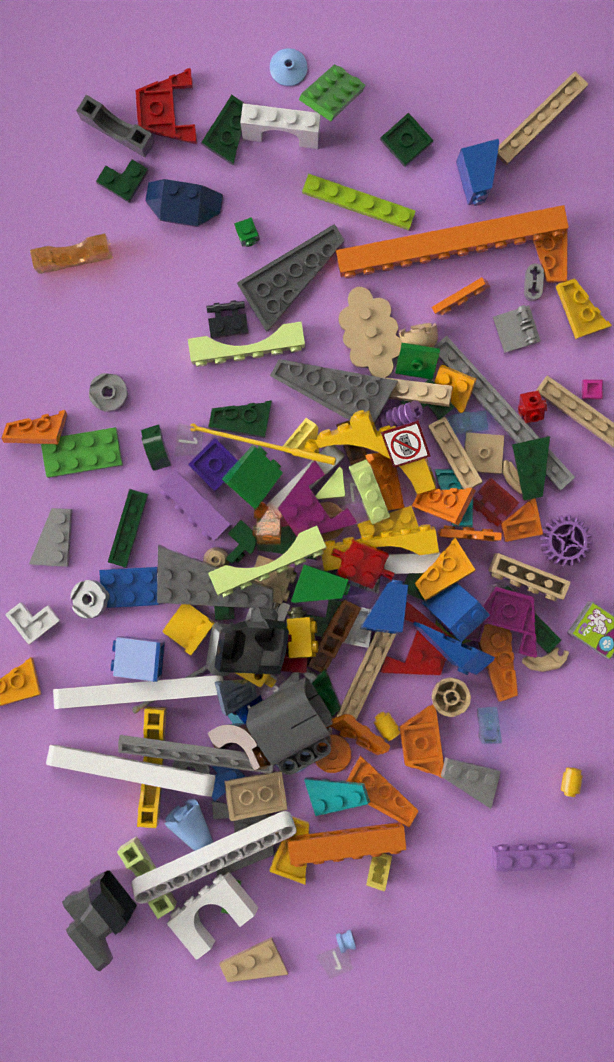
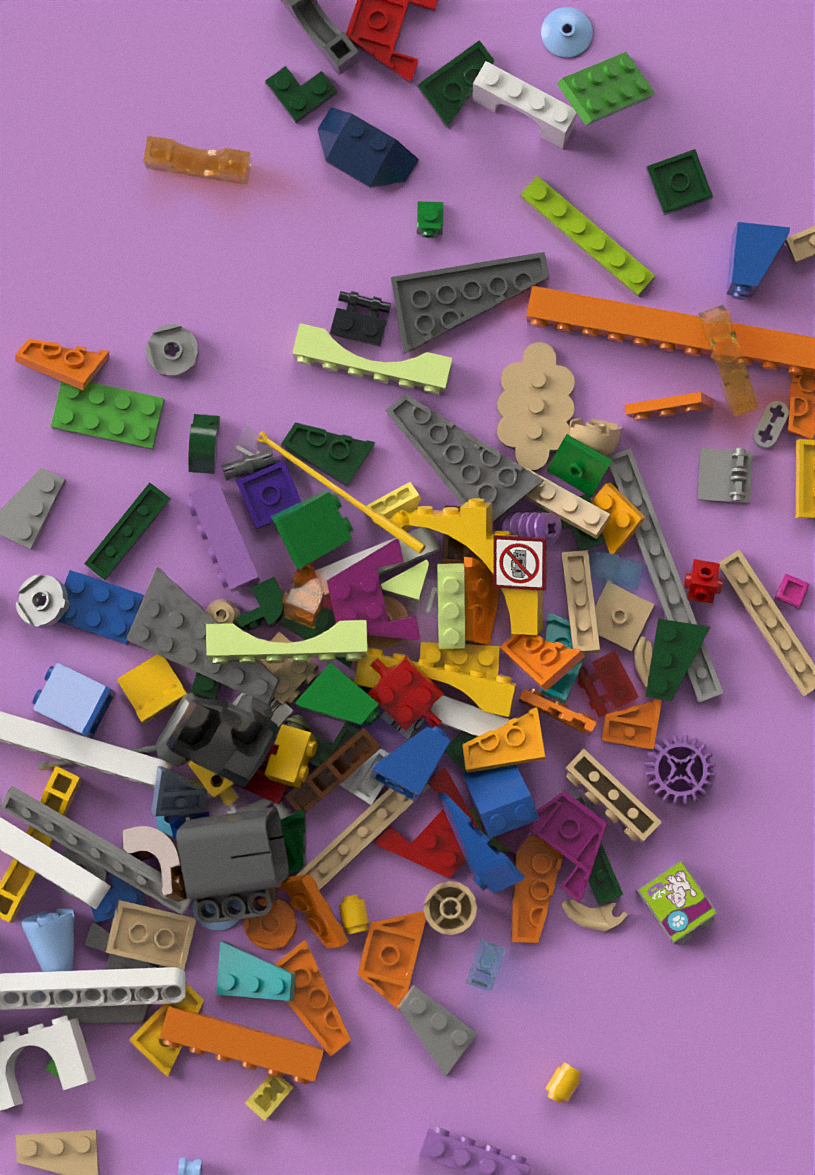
camera: 30 degrees right, 5 degrees down
(191, 449) = (248, 464): none -> dark grey pin
(484, 236) = (729, 360): none -> clear yellow arch

